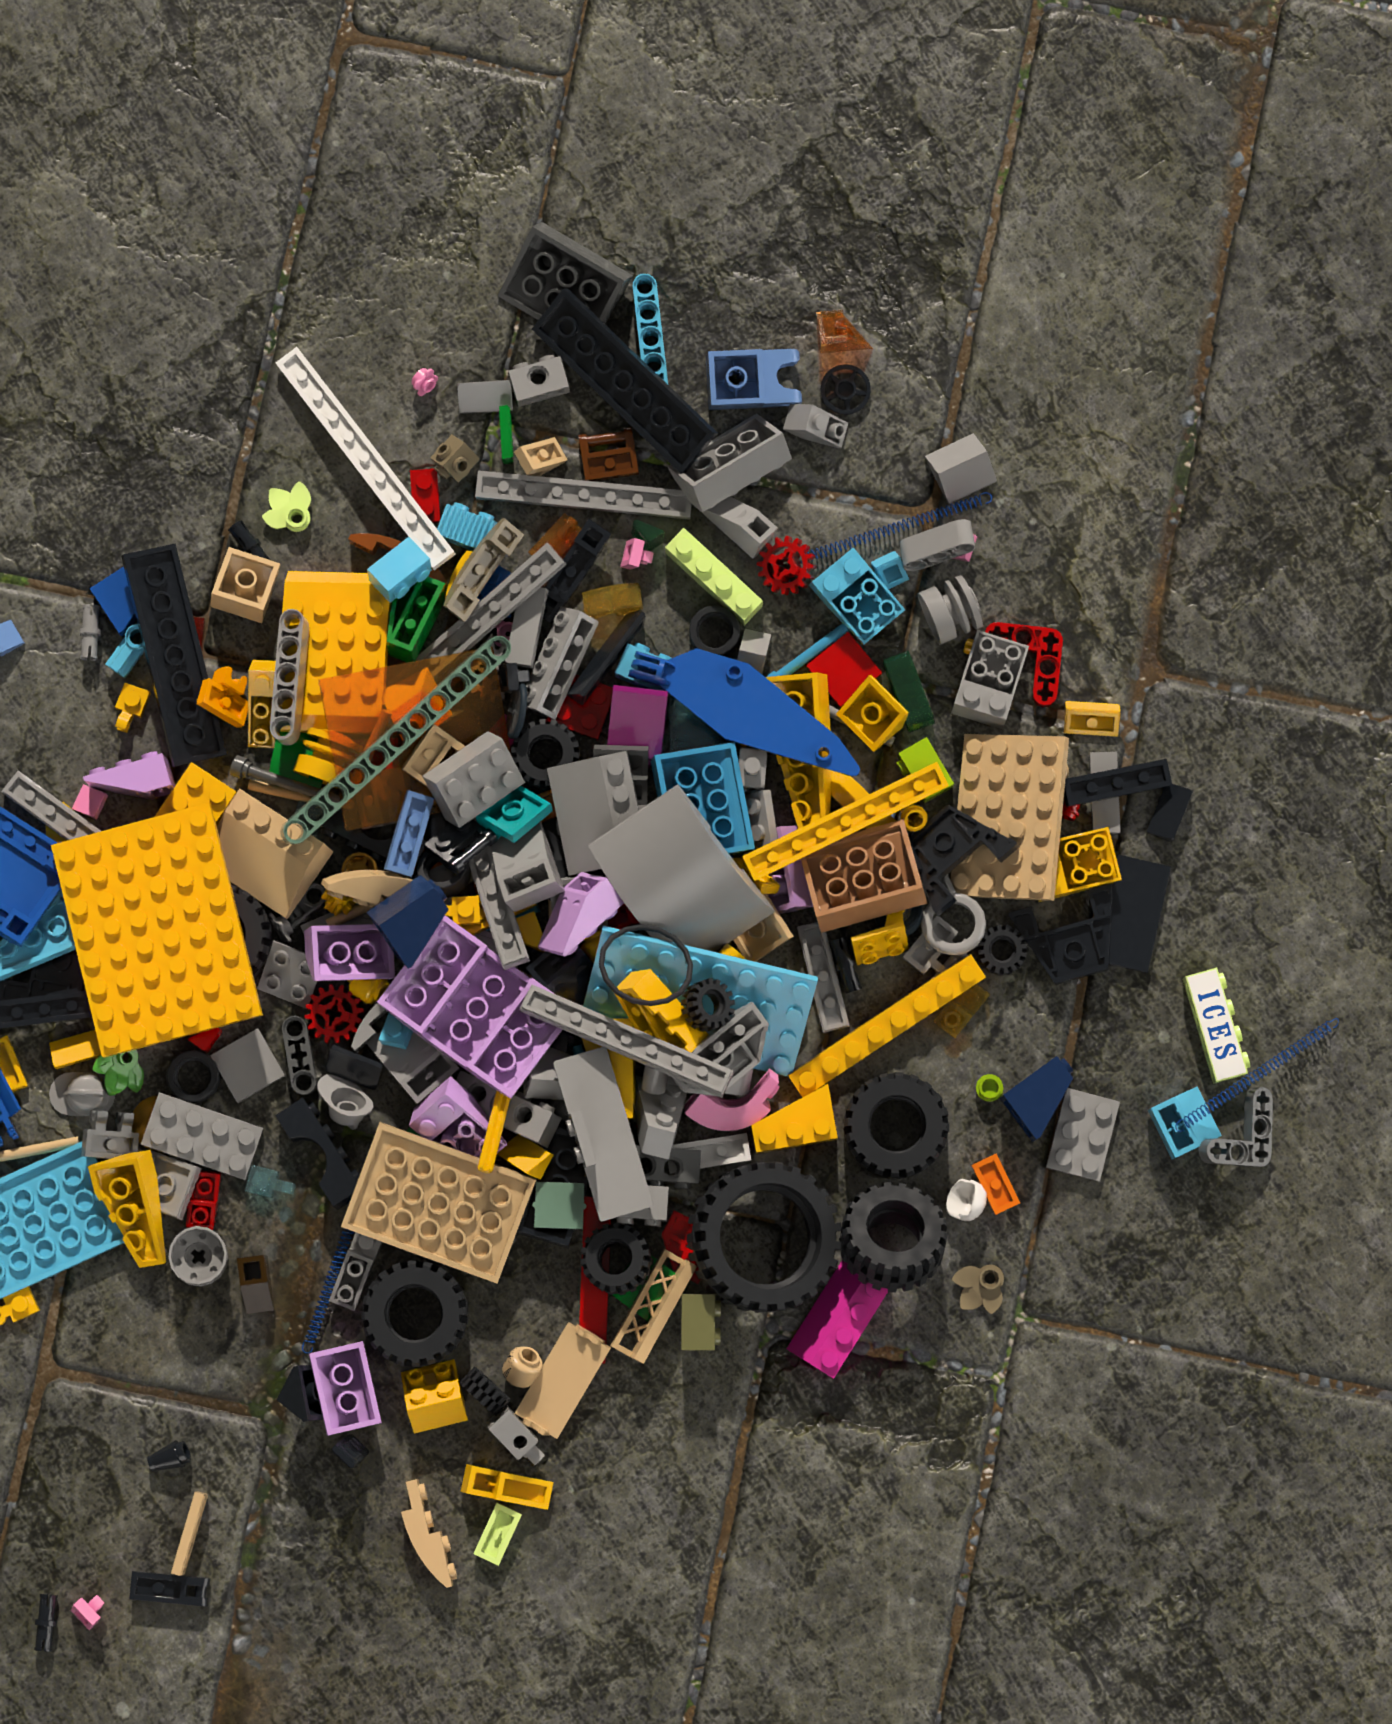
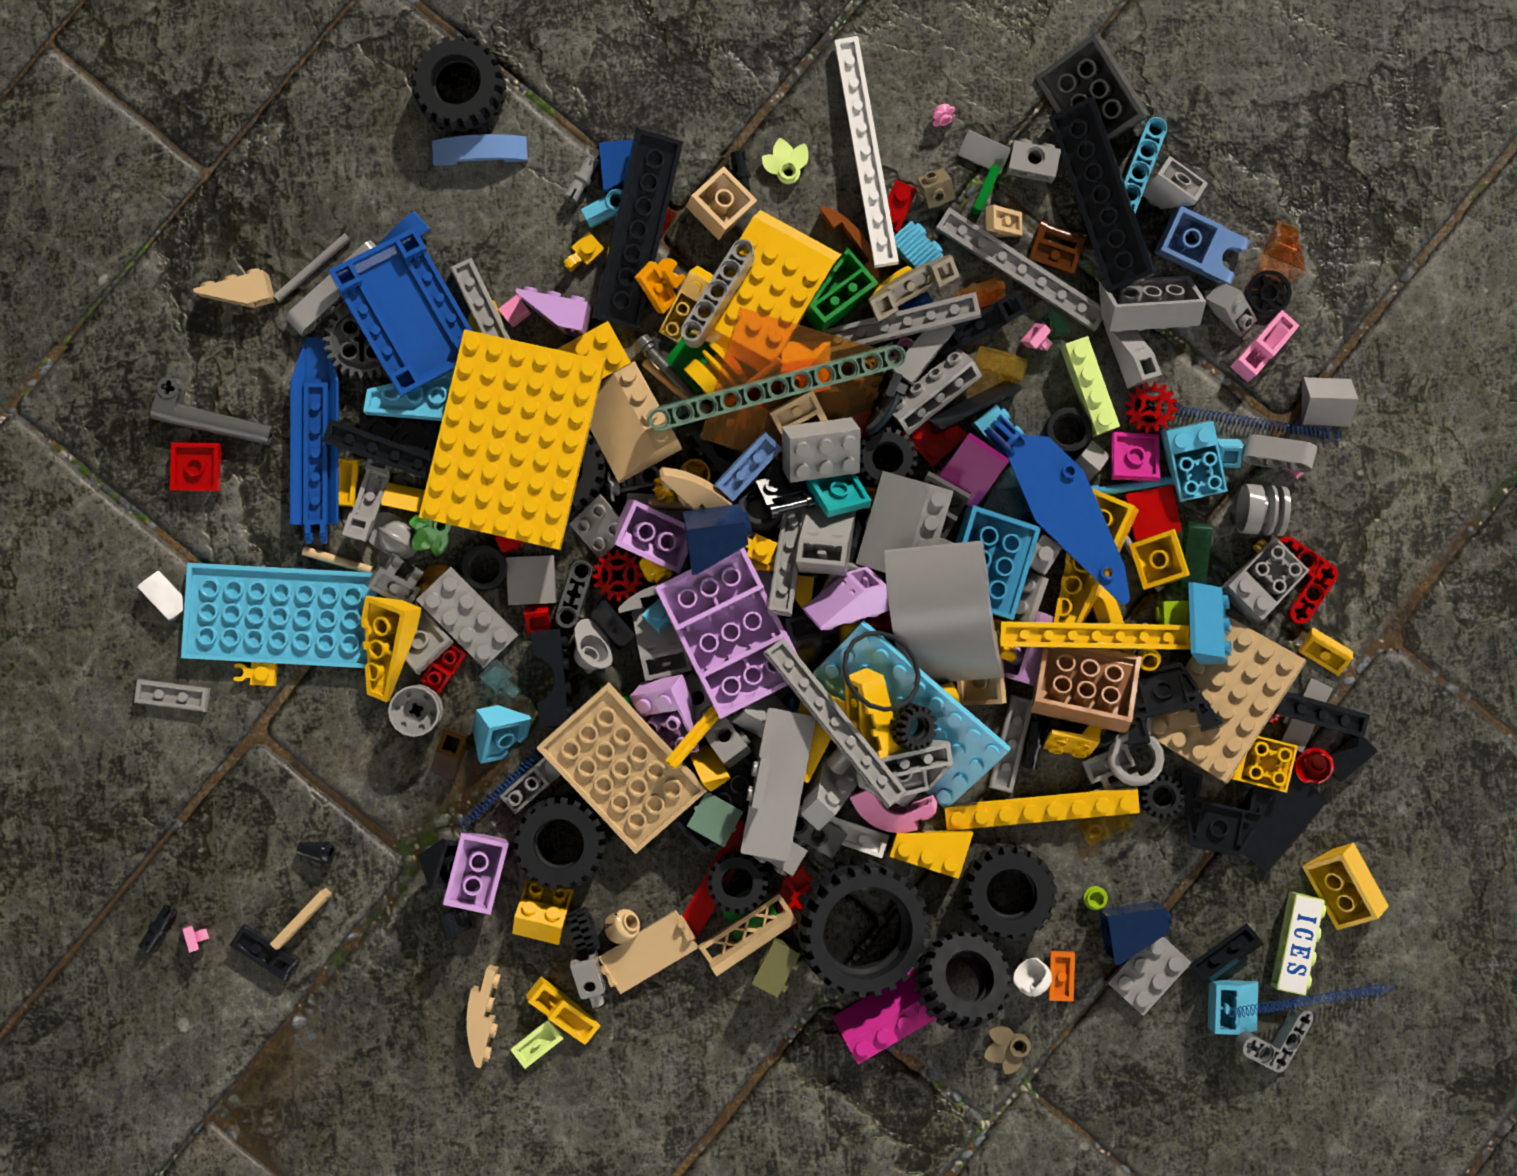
camera: 25 degrees right, 5 degrees up
(39, 1070) = (368, 502): none -> light grey slope
(273, 1100) = (537, 617): none -> red slope
(292, 1236) = (497, 730): none -> medium azure slope
(399, 570) = (848, 253): medium azure brick -> none
(694, 333) = (1174, 186): none -> light grey slope
(796, 622) = (1135, 456): none -> dark pink tile
(868, 445) = (1264, 346): none -> bright pink slope
(954, 752) = (1209, 624): none -> dark azure slope
(1137, 839) = (1314, 765): none -> red hair
(1149, 1075) = (1226, 954): none -> black plate
(1234, 944) = (1346, 887): none -> yellow slope

